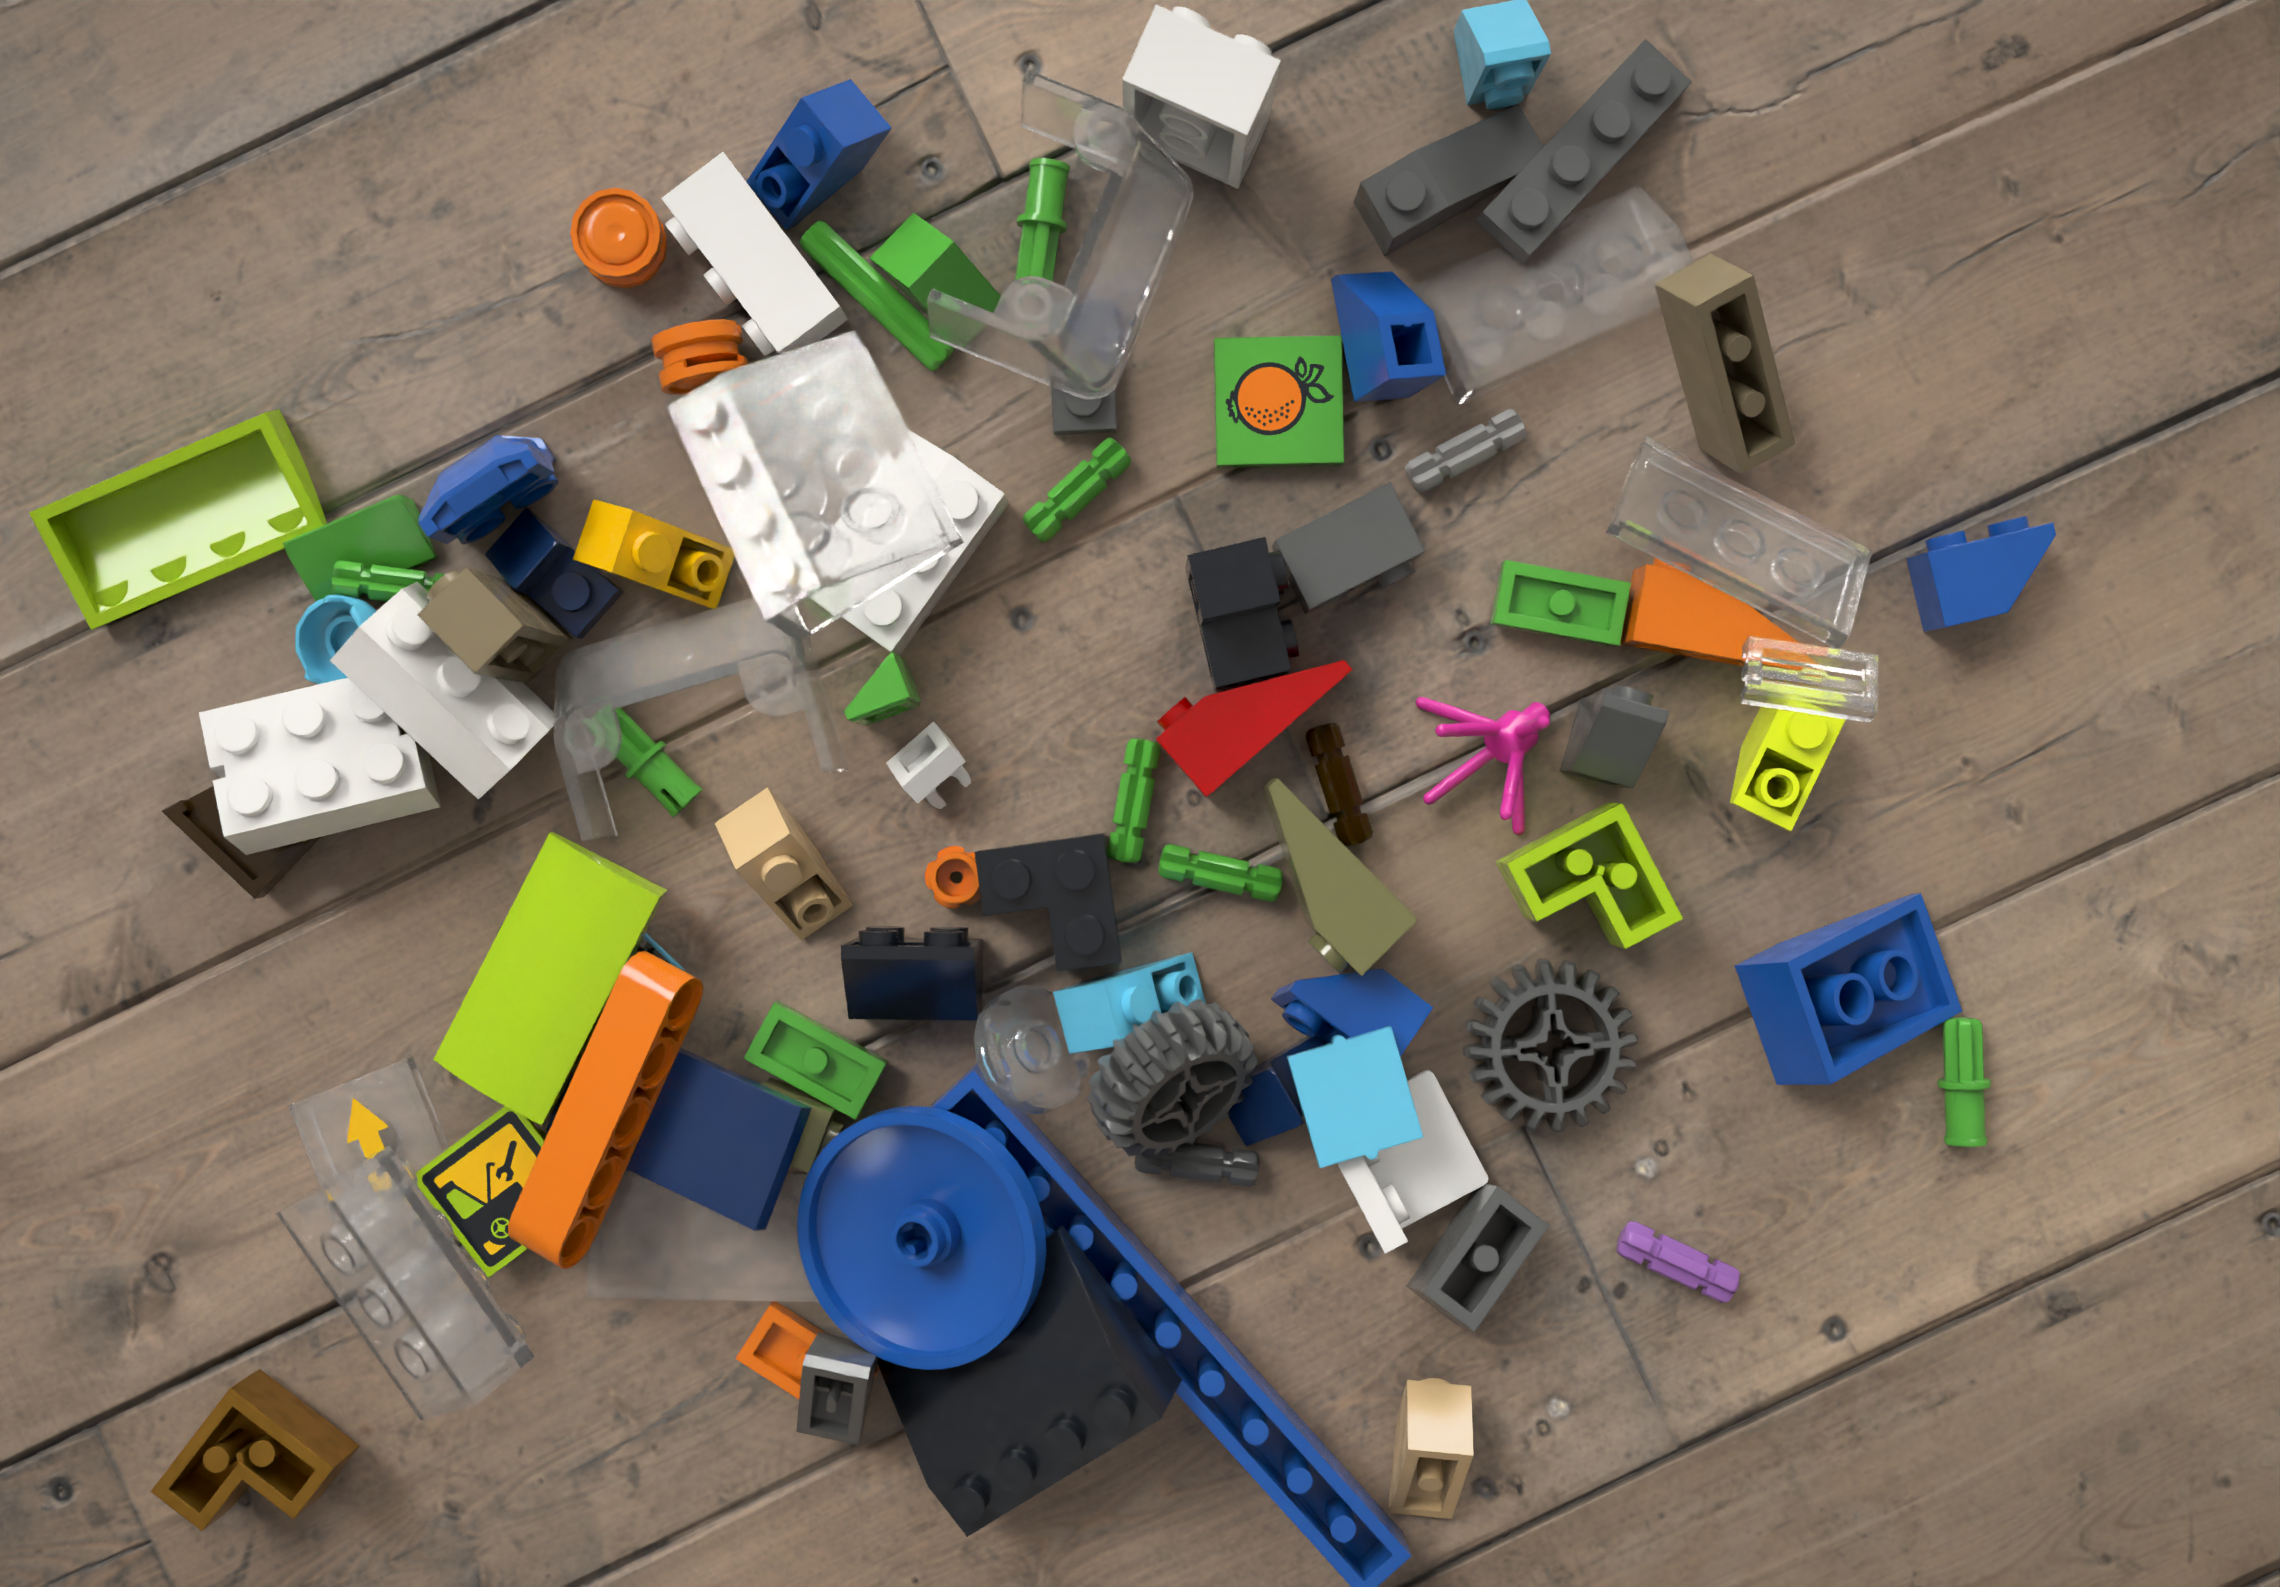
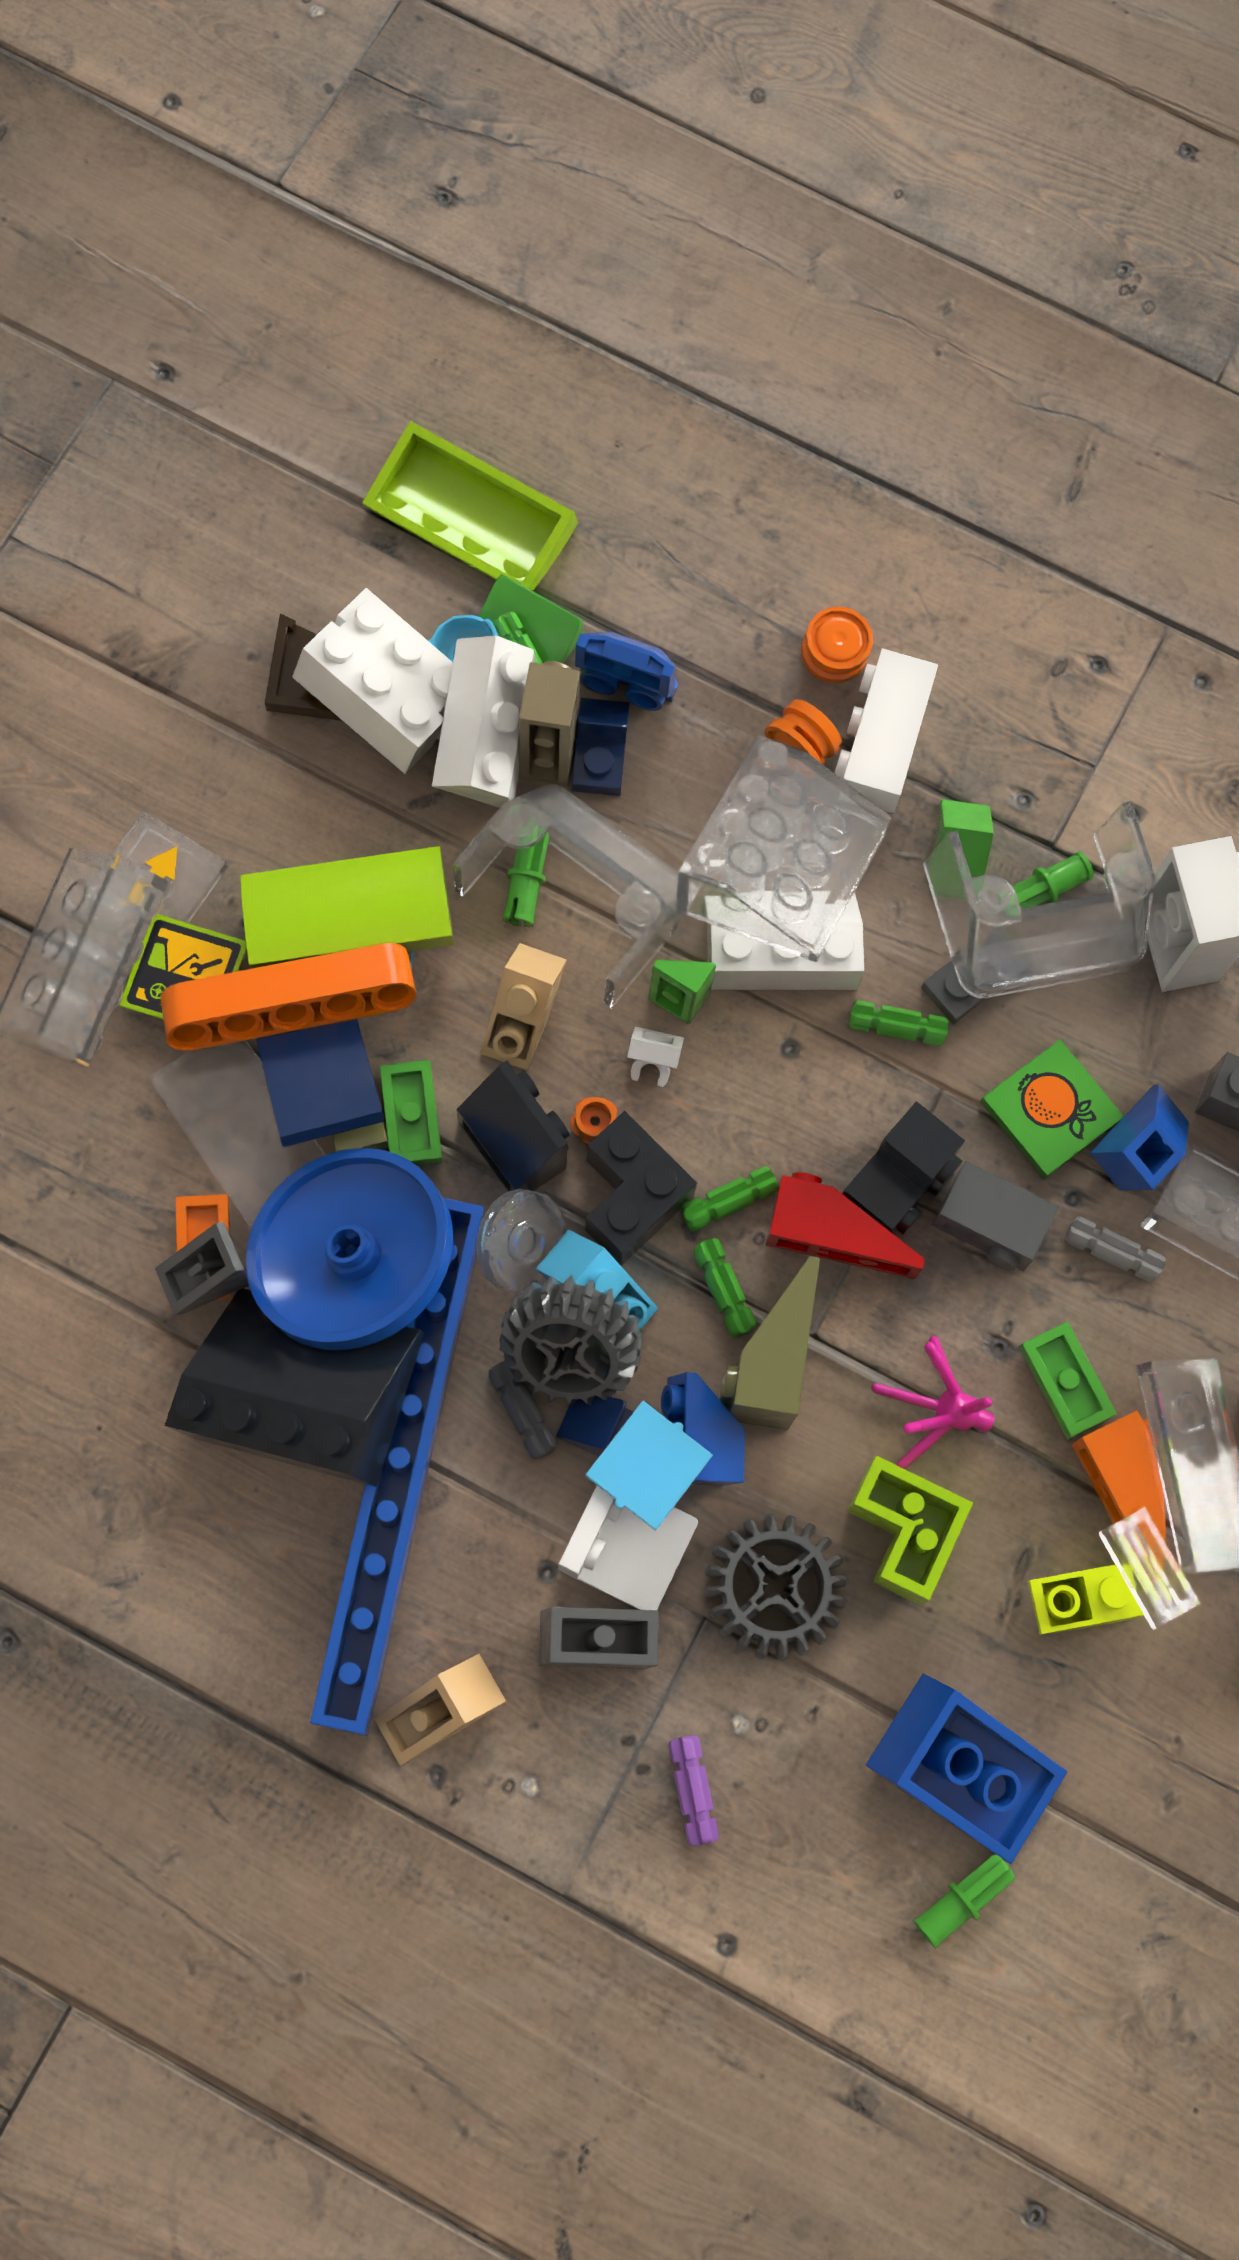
camera: 50 degrees right, 15 degrees down
(654, 553) = (660, 794): yellow slope -> none
(817, 151) = (981, 722): blue slope -> none
(874, 294) = (922, 817): bright green axle -> none
(1339, 784) = (840, 1322): dark brown axle -> none
(1613, 736) = (1010, 1471): dark grey slope -> none

